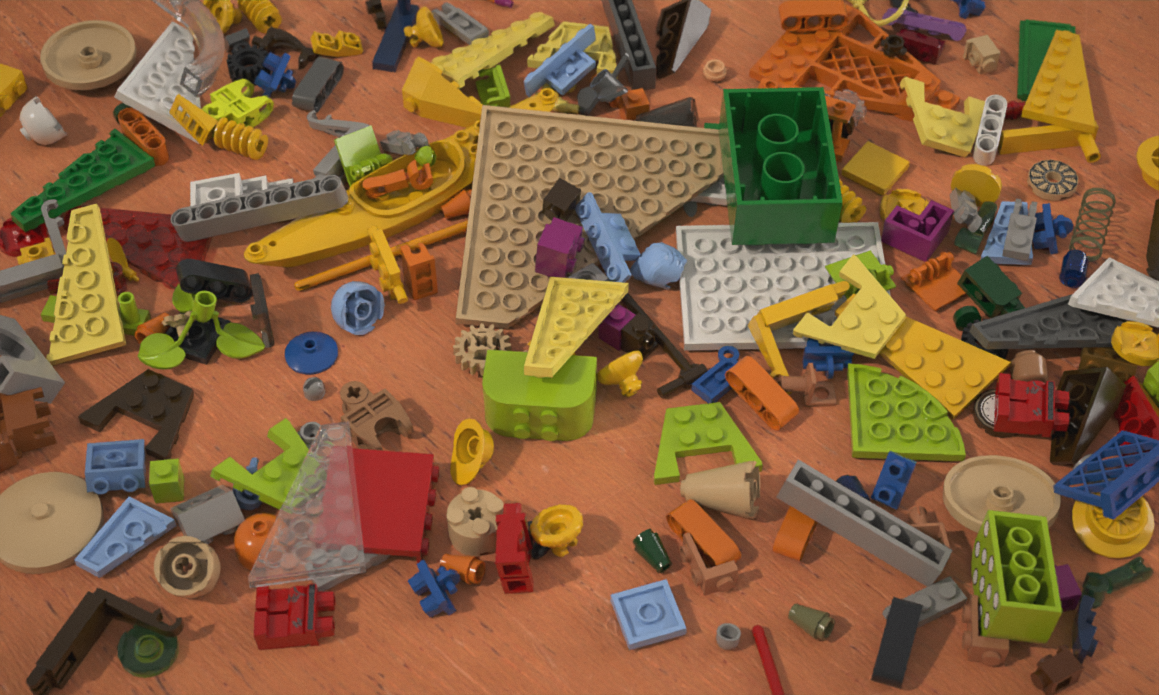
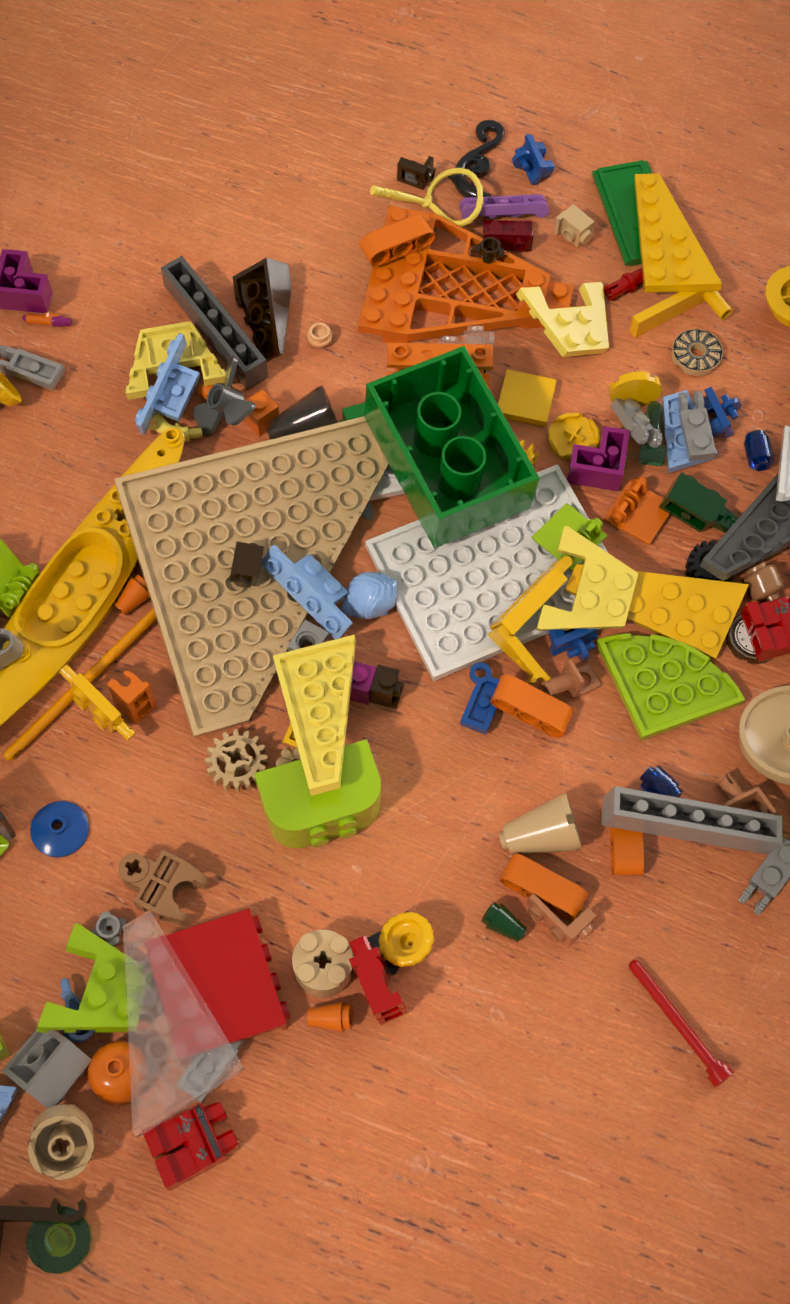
camera: 25 degrees left, 15 degrees up
(314, 389) = (88, 874): light grey hinge -> none
(357, 307) = (85, 762): light blue cylinder -> none
(397, 180) = (79, 583): orange piece -> none
(403, 142) = (41, 543): light grey hinge -> none
(425, 155) = (76, 555): lime hinge -> none
(428, 579) = (325, 1062): blue hips -> none
(436, 98) = (46, 474): yellow wedge -> none
(471, 451) = (279, 886): yellow piece -> none
(489, 51) = (74, 398): light yellow wing -> none
(494, 89) = (104, 442): lime hinge -> none
(558, 248) = (269, 620): magenta brick -> none
(623, 373) = (389, 735): yellow hair -> none
(648, 614) = (529, 993): light blue plate -> none
(688, 372) = (450, 706): dark brown bar -> none
(699, 432) = (488, 768): lime wing -> none
(728, 636) = (612, 981): light grey hinge -> none
(812, 621) = (680, 936): olive cone -> none
(893, 480) = (693, 756): blue hips -> none
(896, 642) = (768, 931): black beam -> none
(965, 315) = (684, 544): dark green tile -> none
(989, 139) = (620, 306): white beam -> none
(1102, 211) = (755, 418): olive piece -> none

